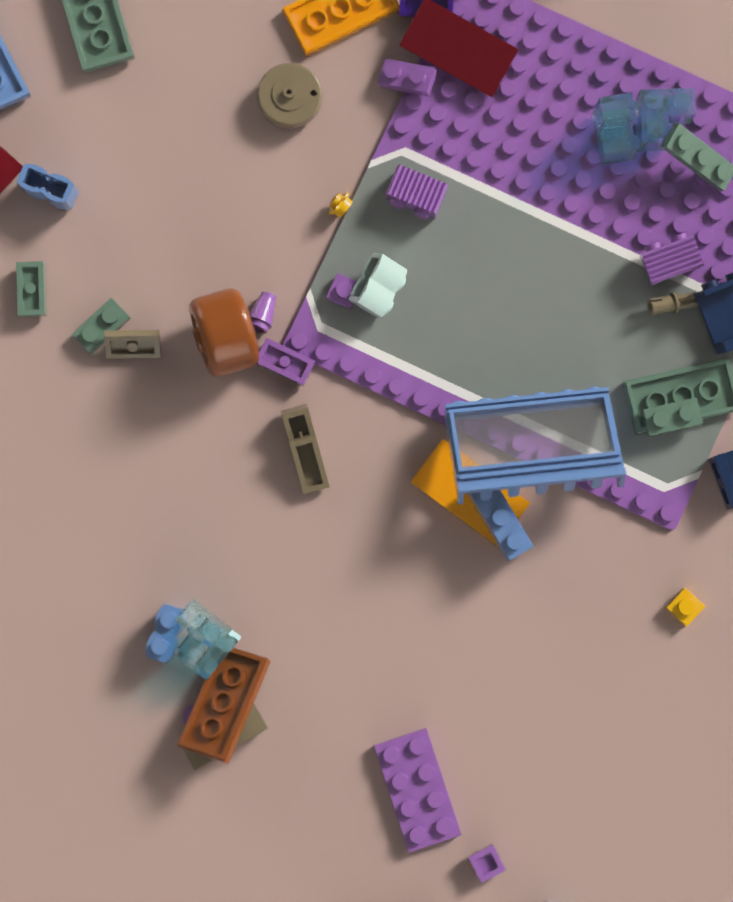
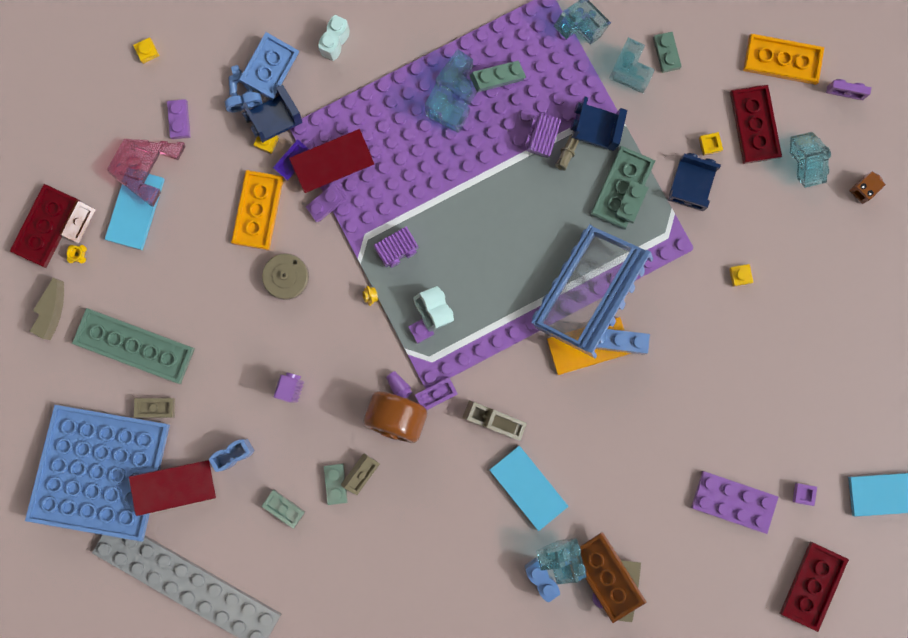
camera: 50 degrees left, 0 degrees up
(36, 64) = (154, 407): none -> dark tan plate
(168, 192) = (289, 388): none -> medium lavender brick
(258, 543) = (529, 488): none -> medium azure tile

